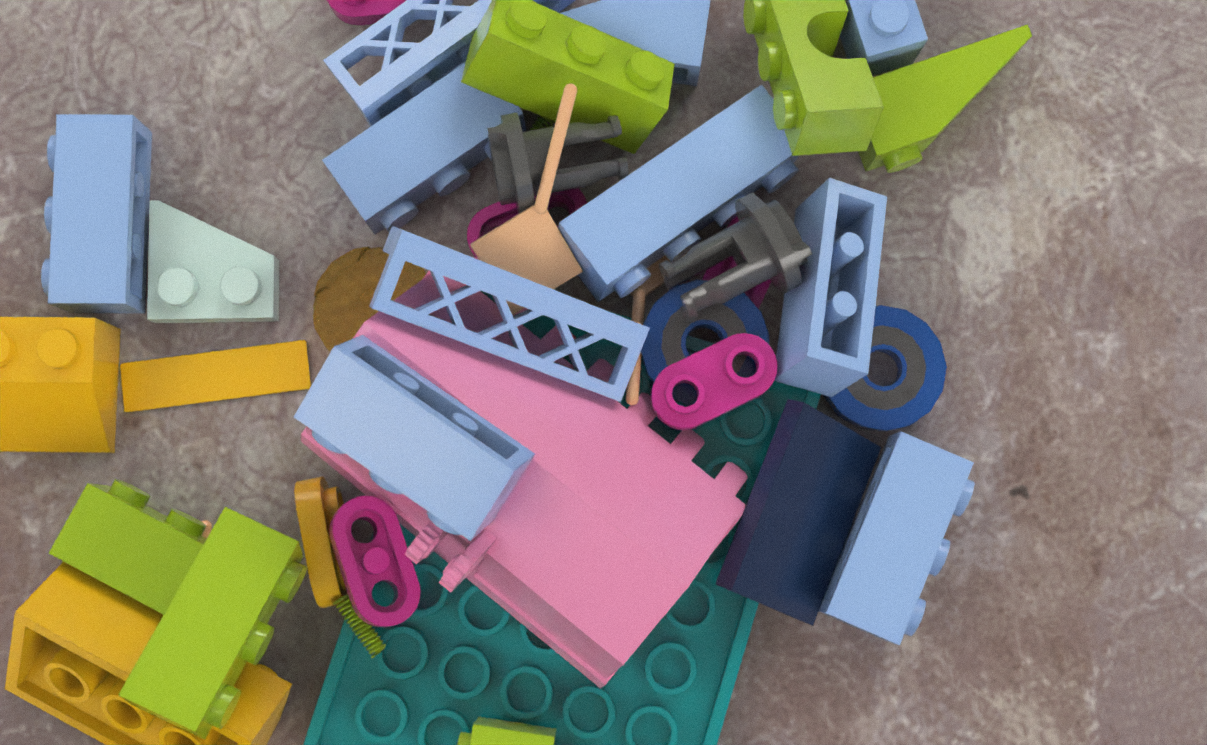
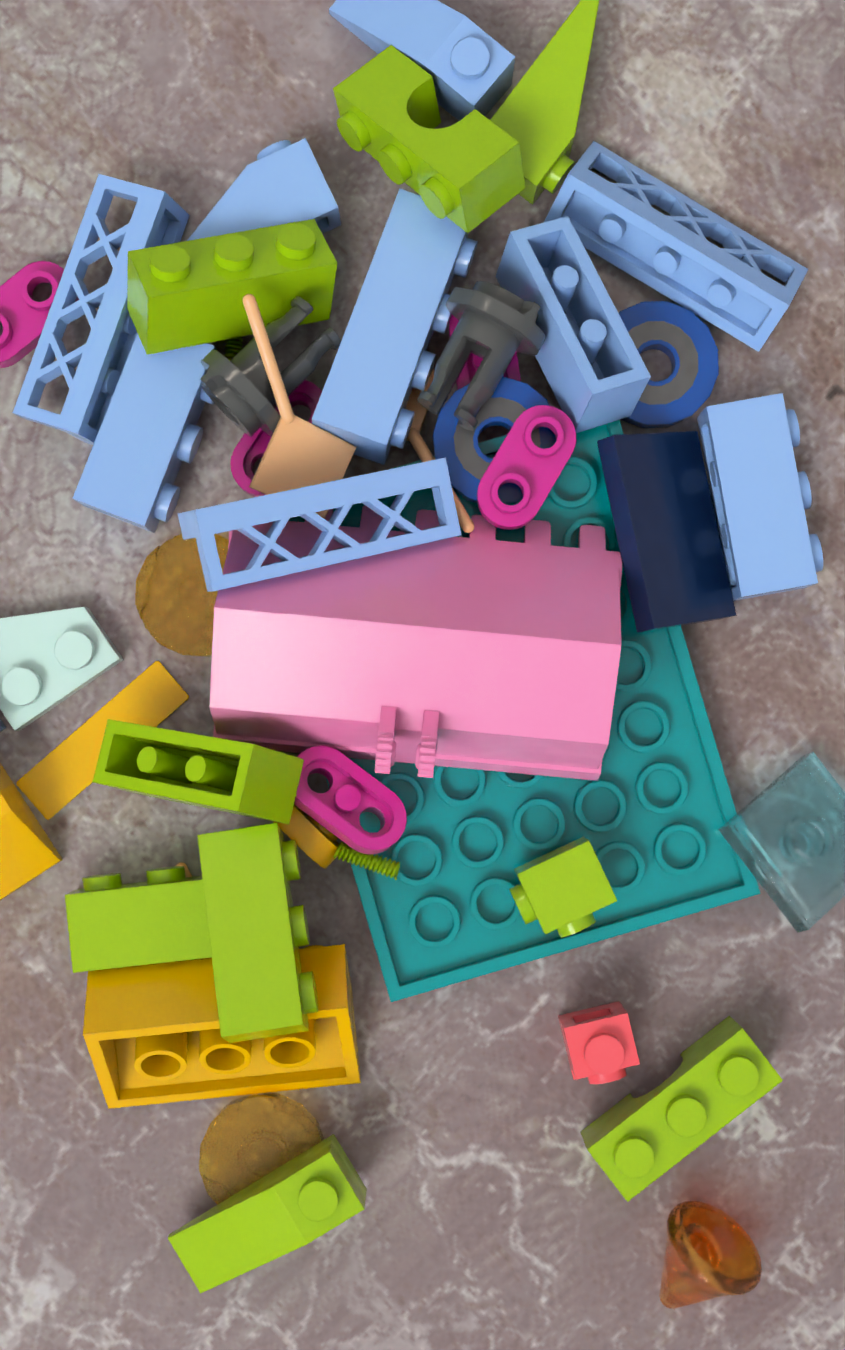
camera: 30 degrees left, 5 degrees up
(266, 455) = (199, 770): none -> lime brick
(413, 436) = (319, 672): light blue brick -> none
(959, 284) = (673, 250): none -> light blue fence

